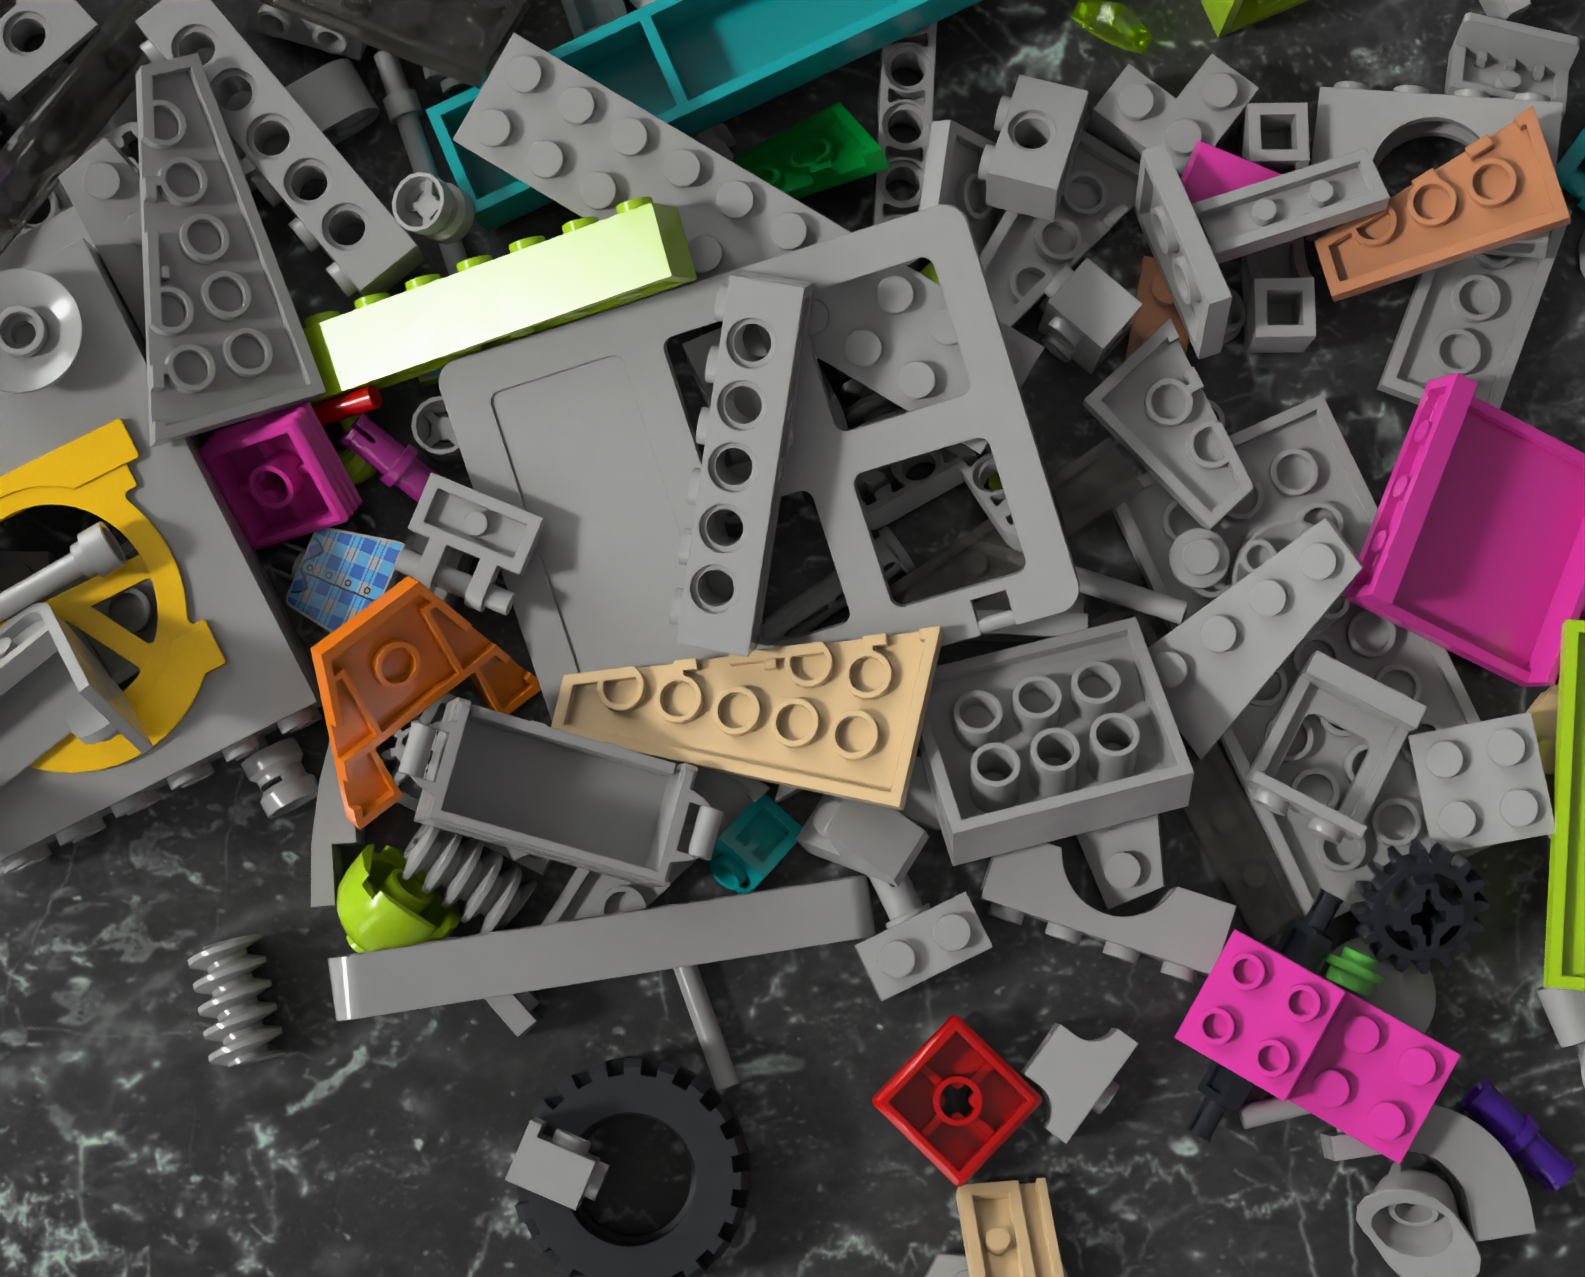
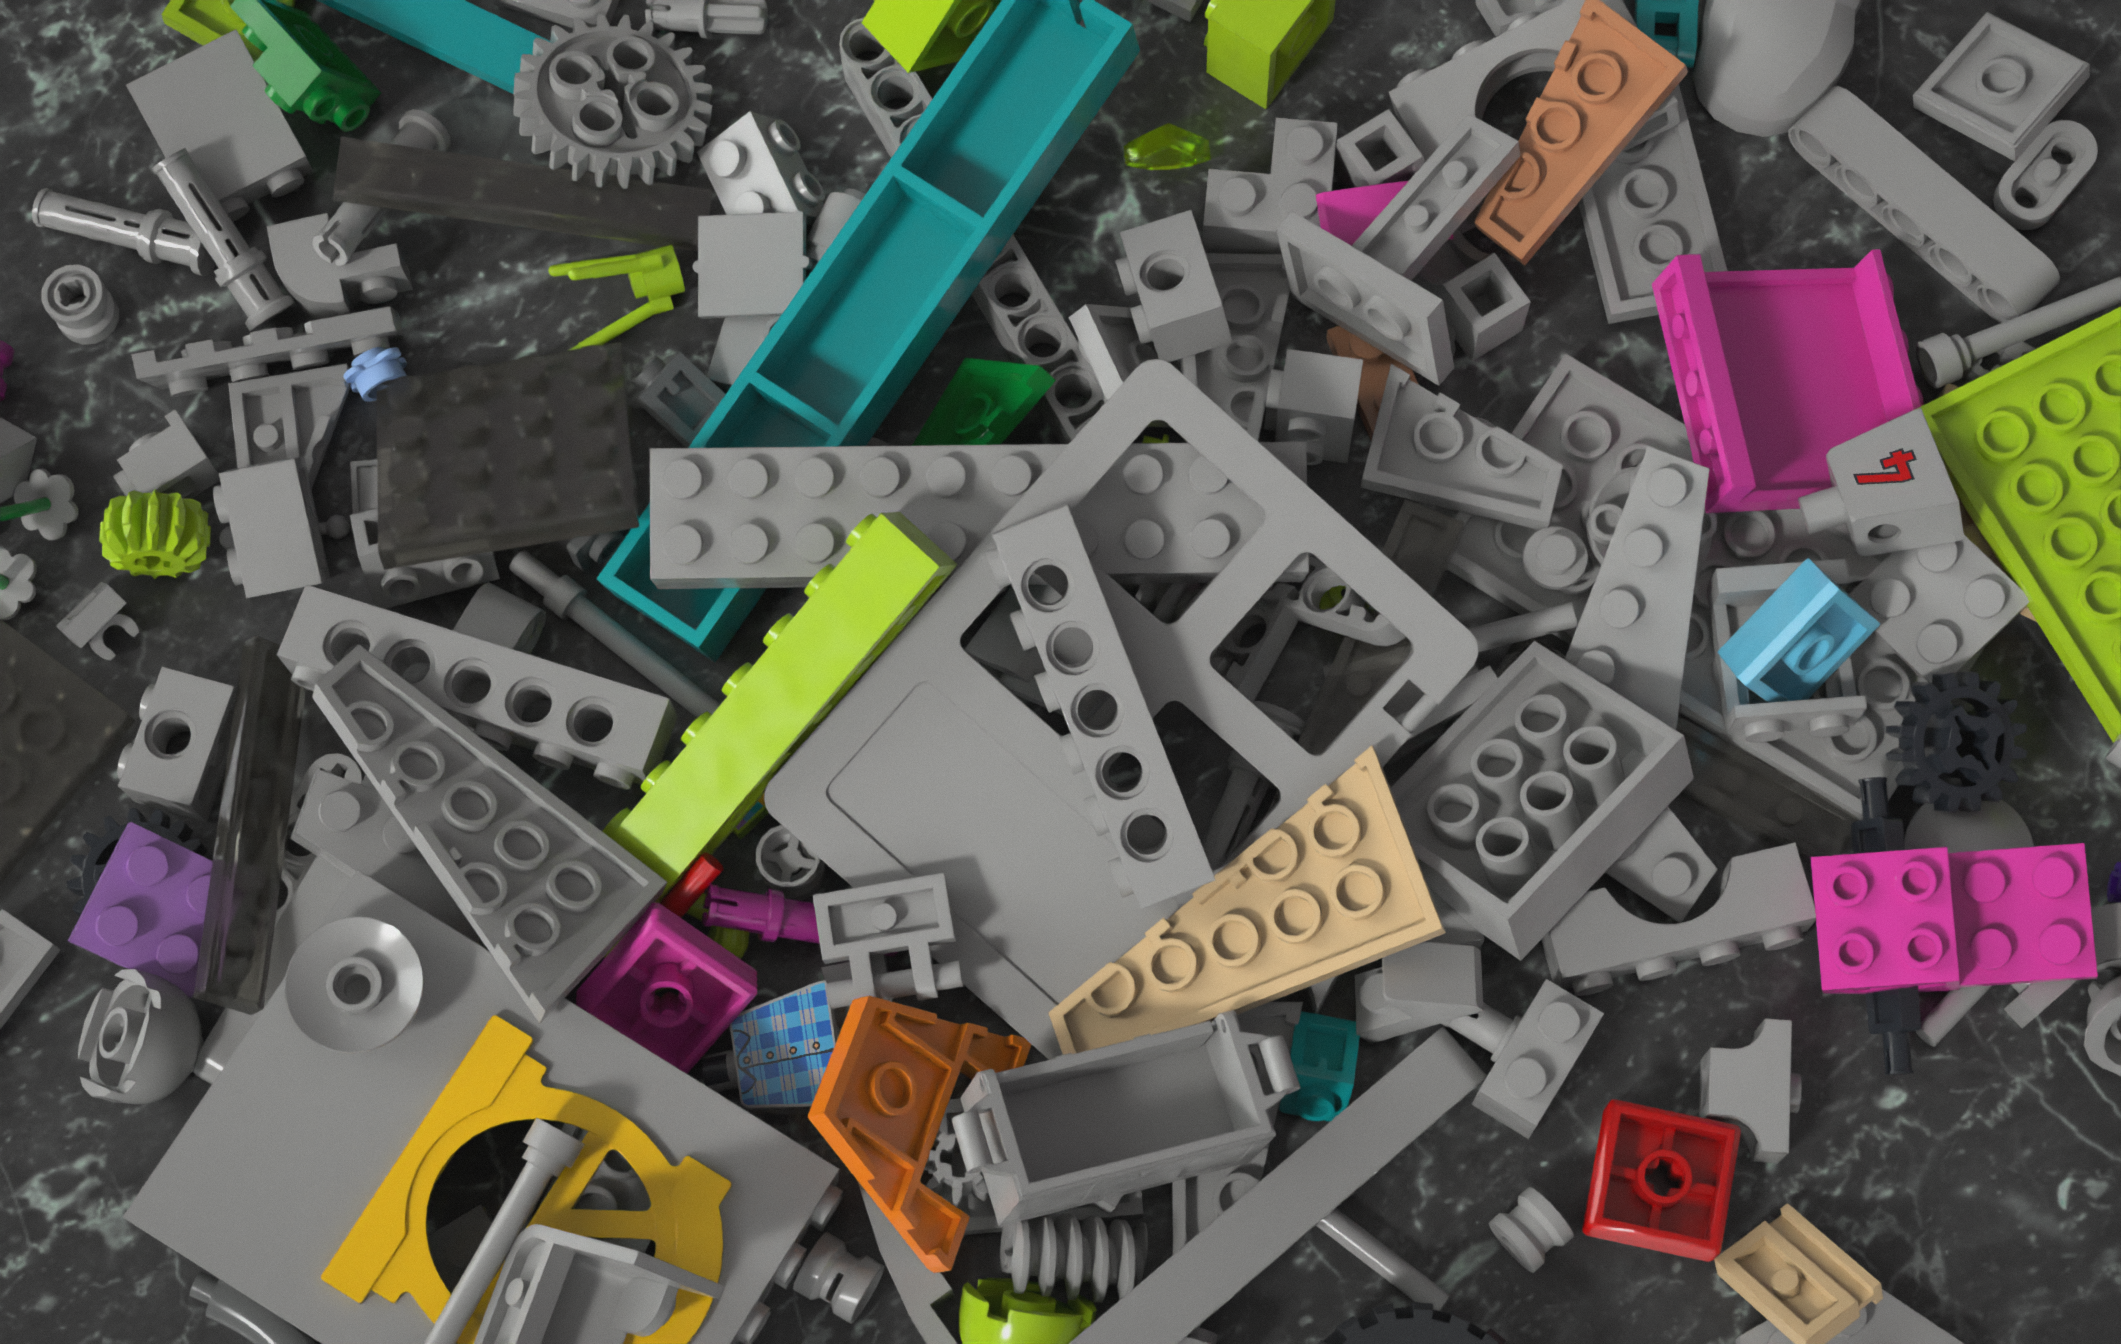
camera: 30 degrees left, 10 degrees down
(433, 208) = (648, 653): light grey wheel -> none
(831, 1073) = (1531, 1229): none -> light grey wheel
(1344, 746) = (1797, 637): none -> medium azure slope
(1354, 971) = (1939, 831): bright green plate -> none
(1498, 672) = (1888, 490): none -> light grey torso

